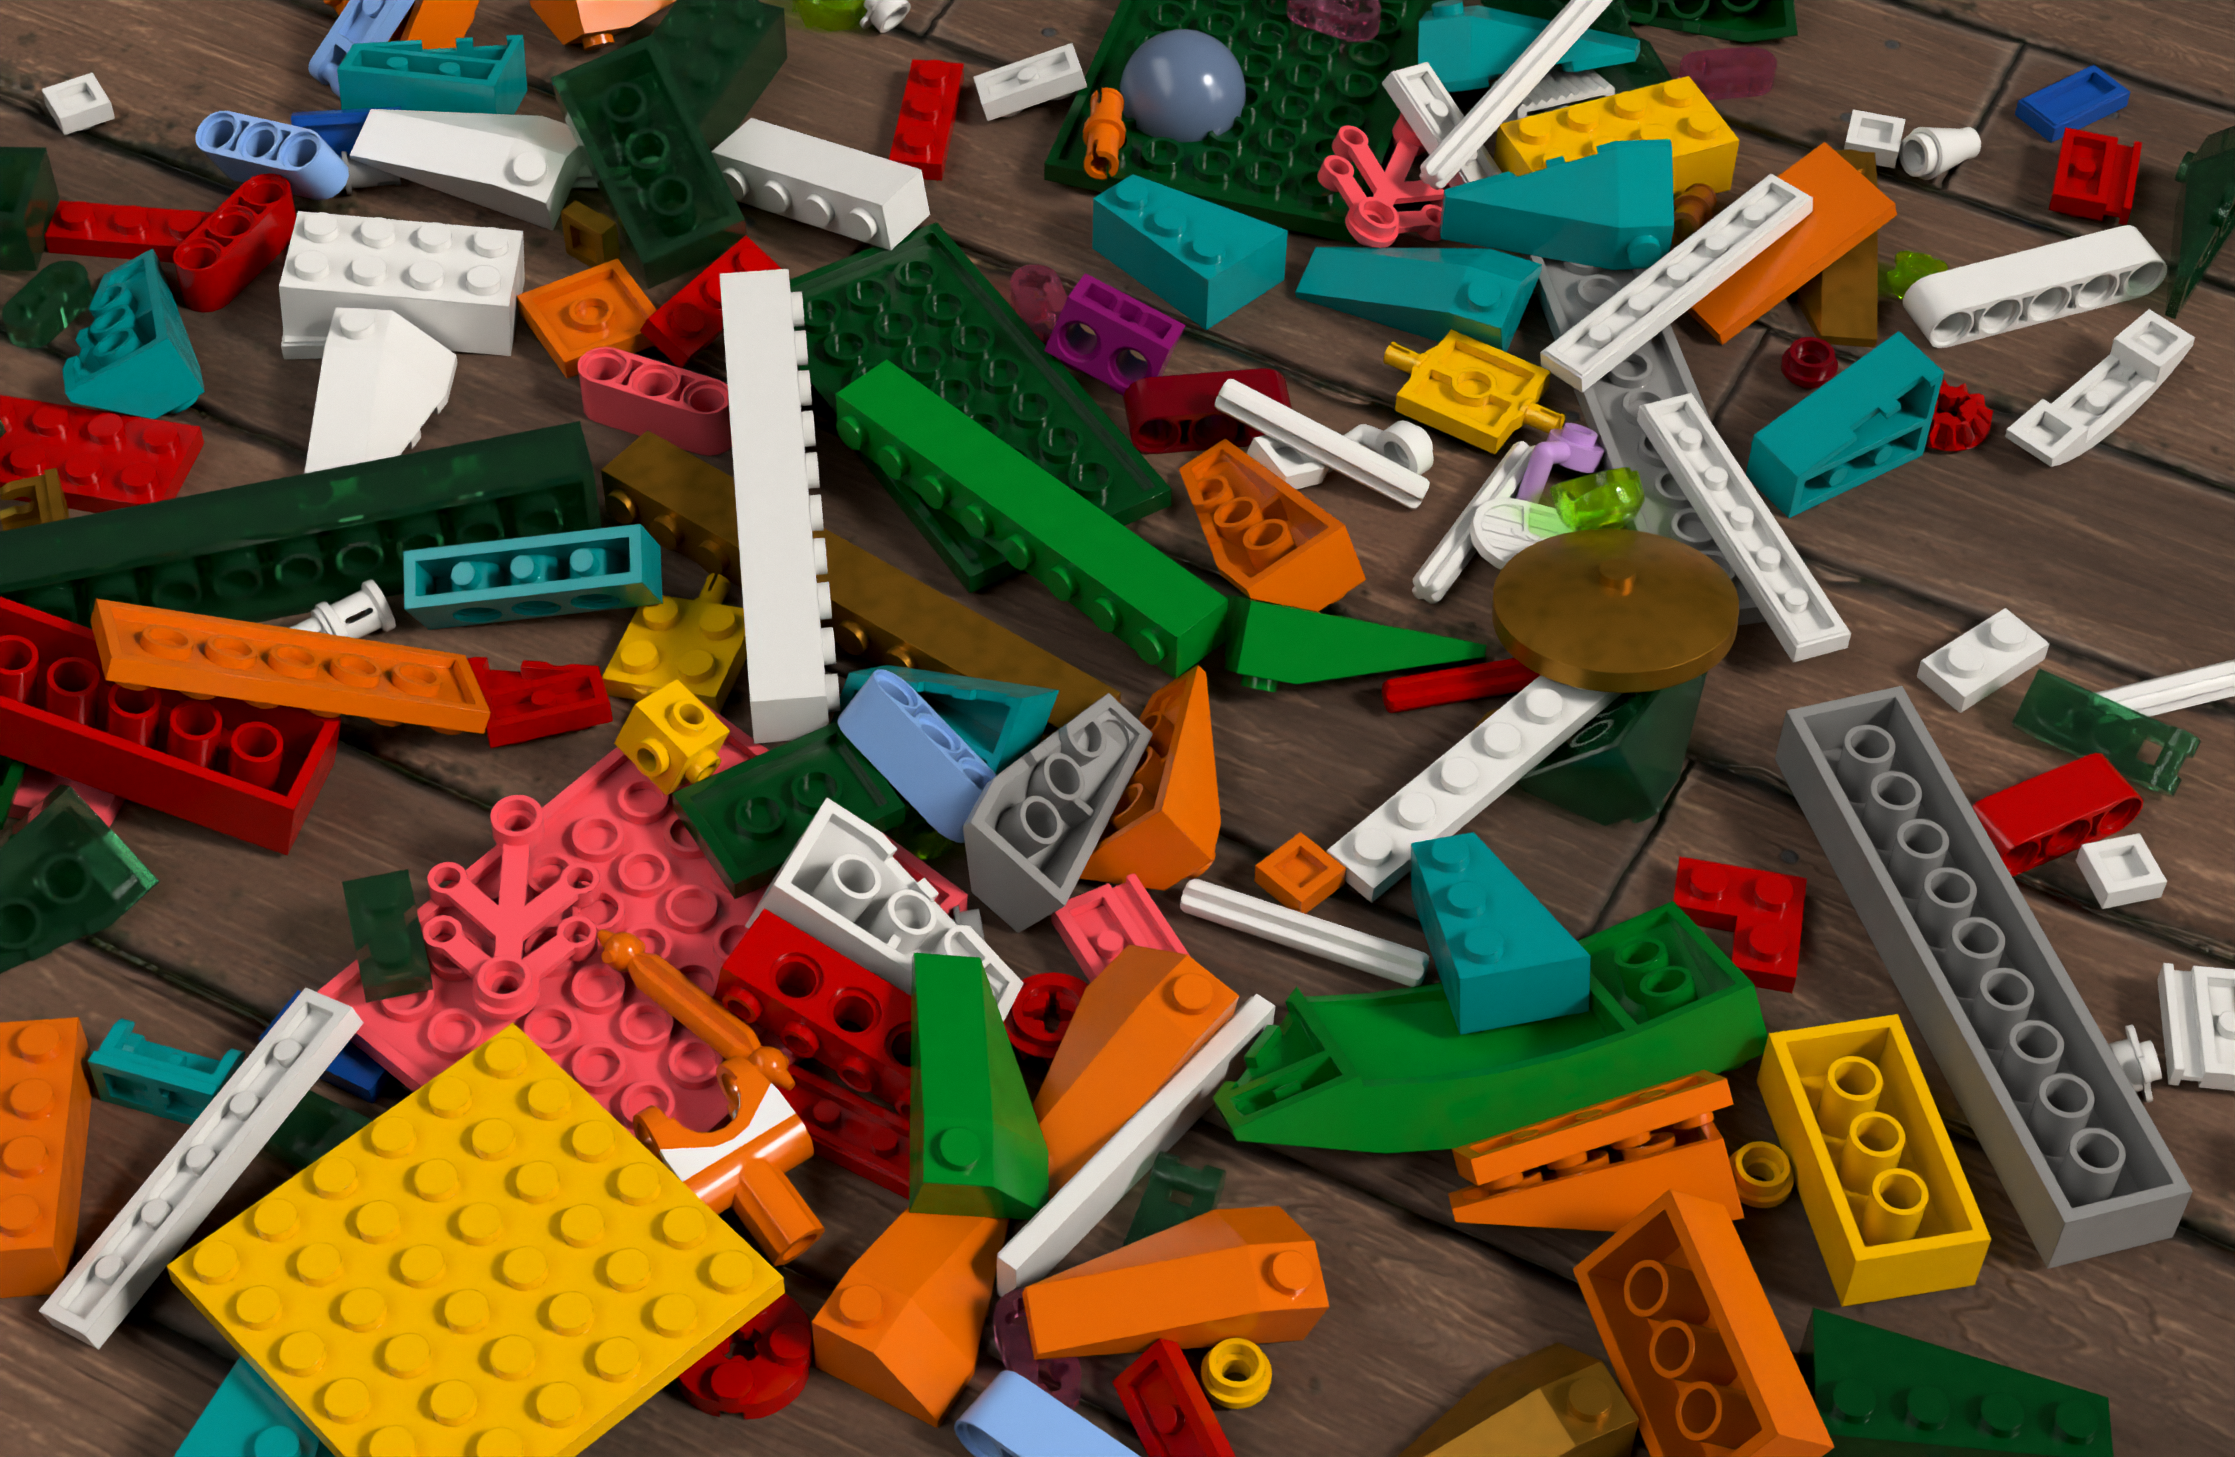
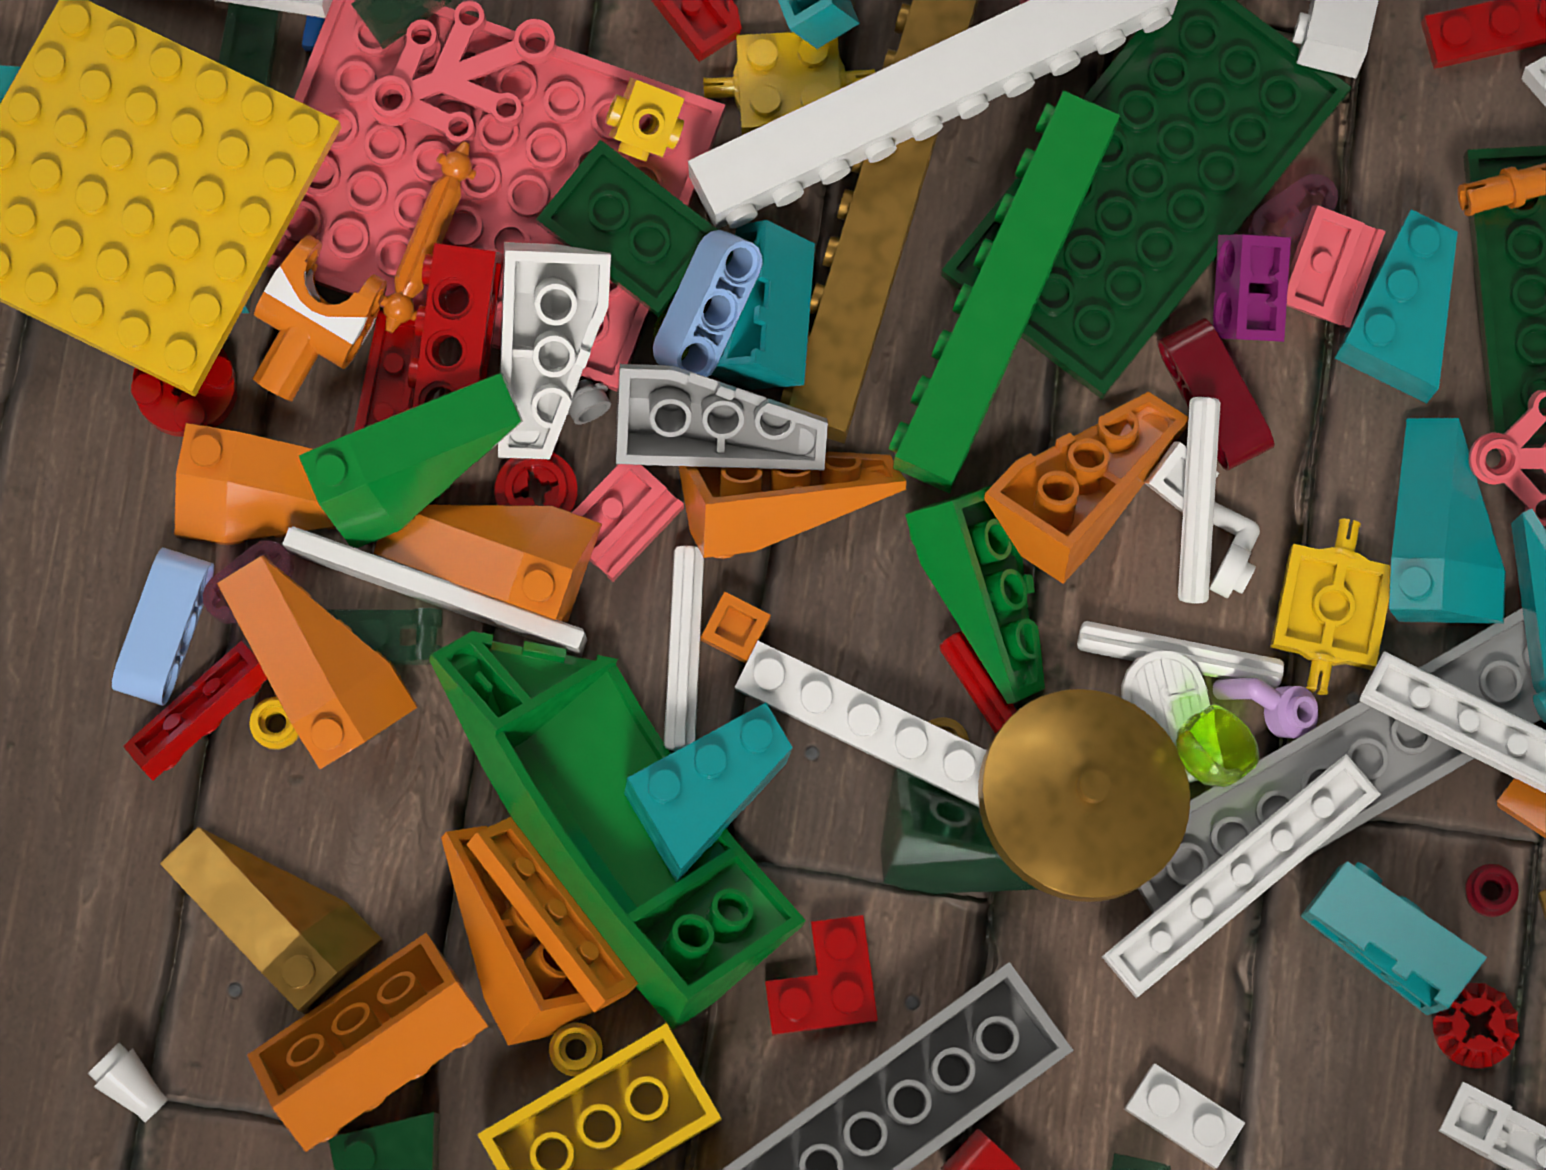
camera: 70 degrees right, 30 degrees up
(1117, 269) = (1332, 266): none -> coral plate

